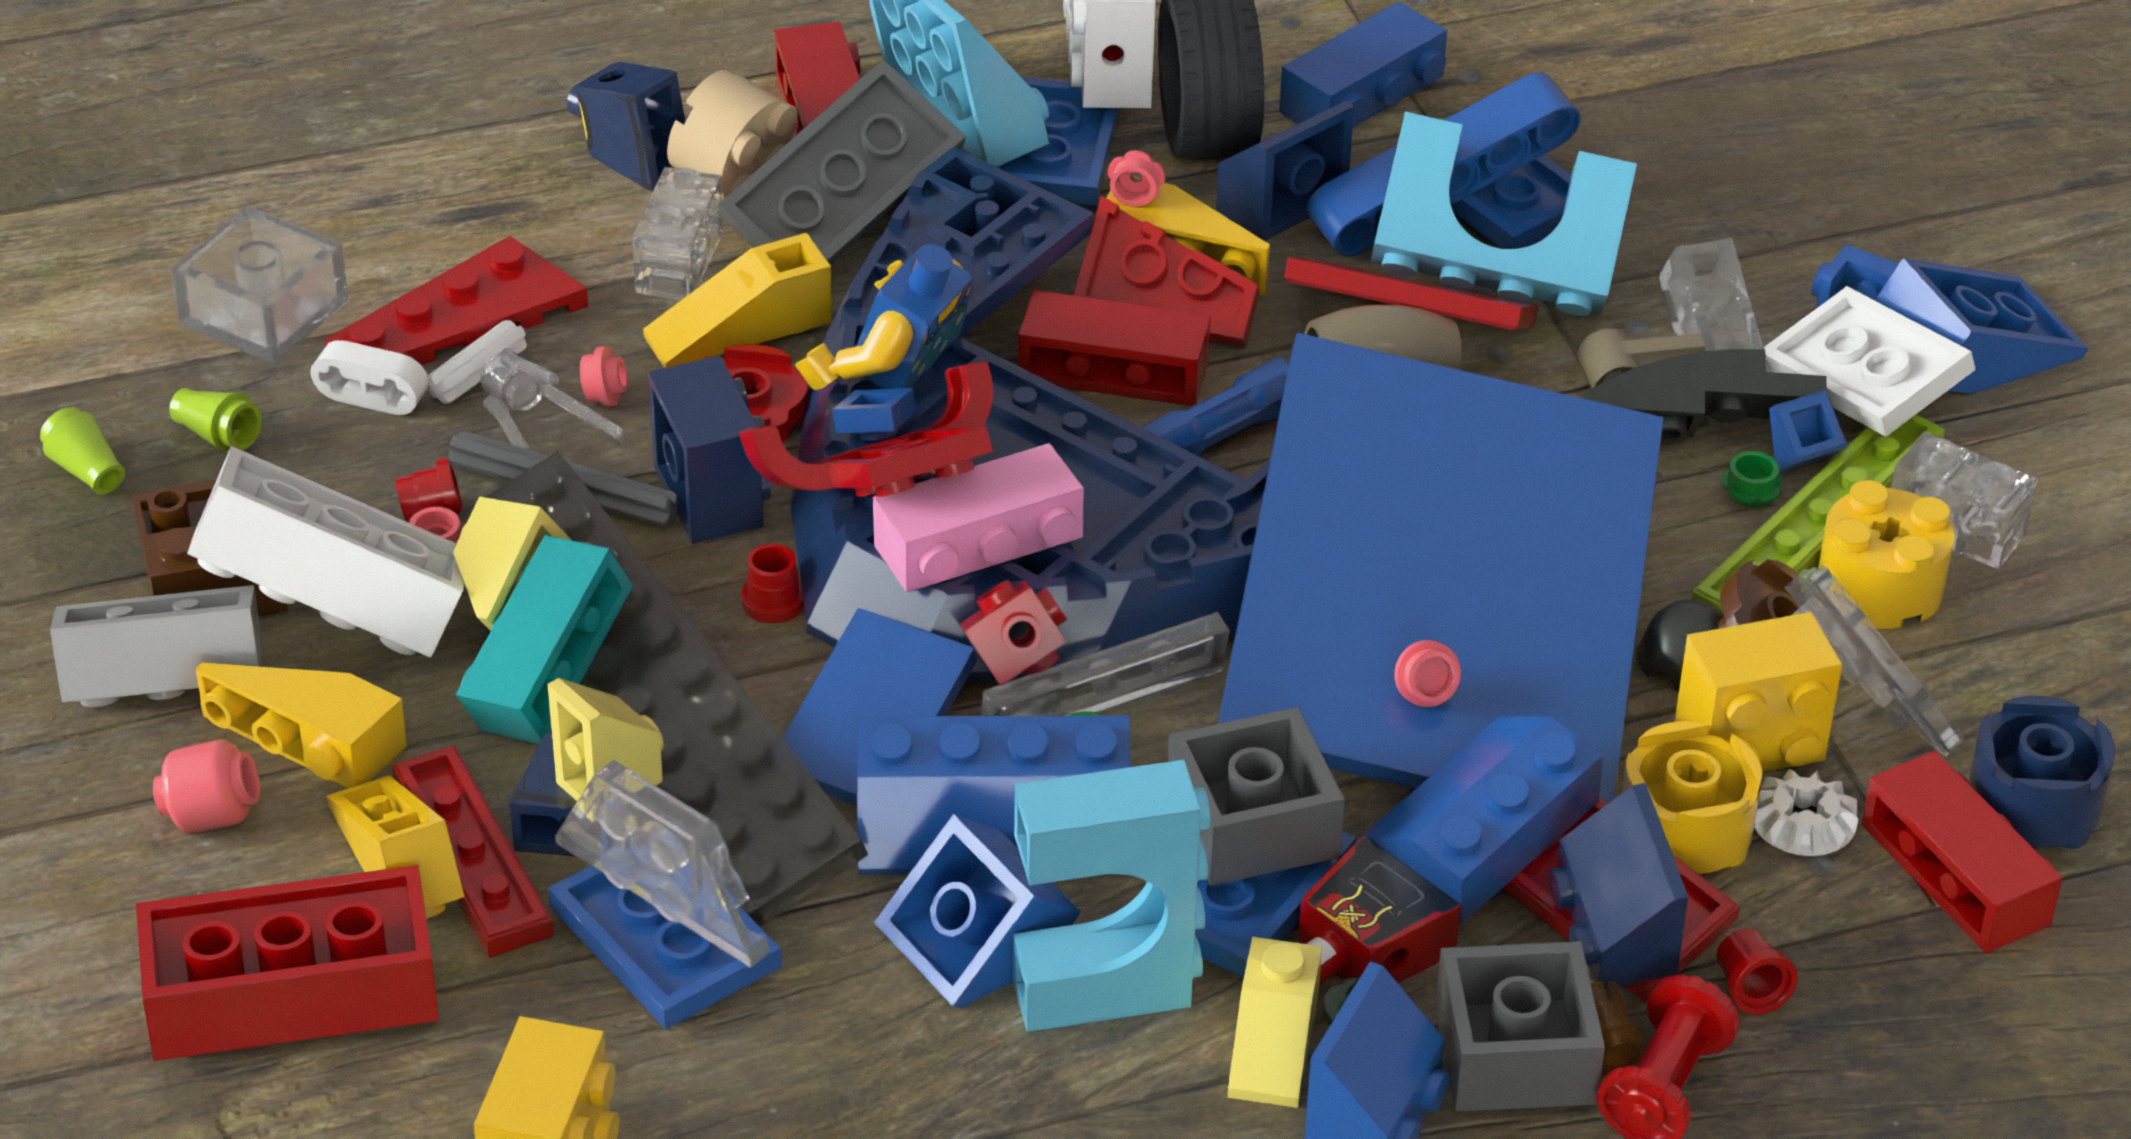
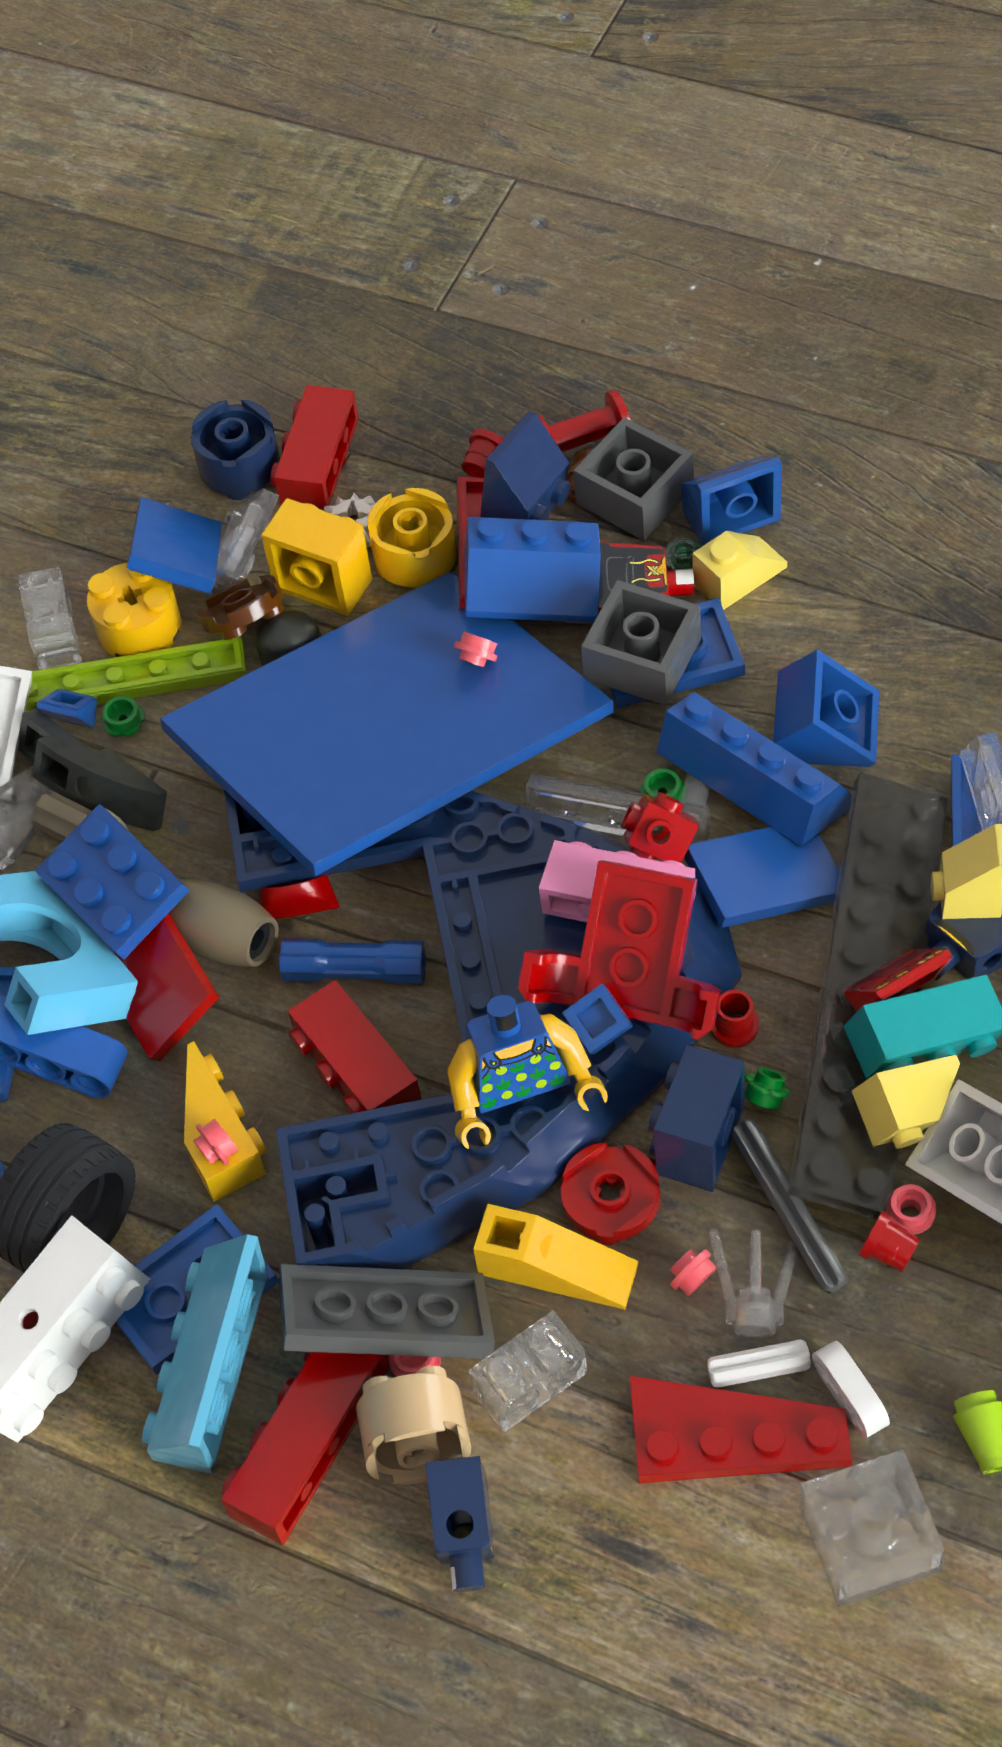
camera: 130 degrees left, 15 degrees up
(617, 643) = (899, 977): none -> red slope
(693, 540) = (766, 1088): none -> green plate
(1145, 267) = (269, 1080): red wing -> none
(1146, 953) = (797, 559): medium azure arch -> none
(1272, 181) = (99, 1100): dark blue slope -> none
(1507, 279) = (112, 881): none -> blue plate
(1932, 605) = (175, 545): none -> blue tile

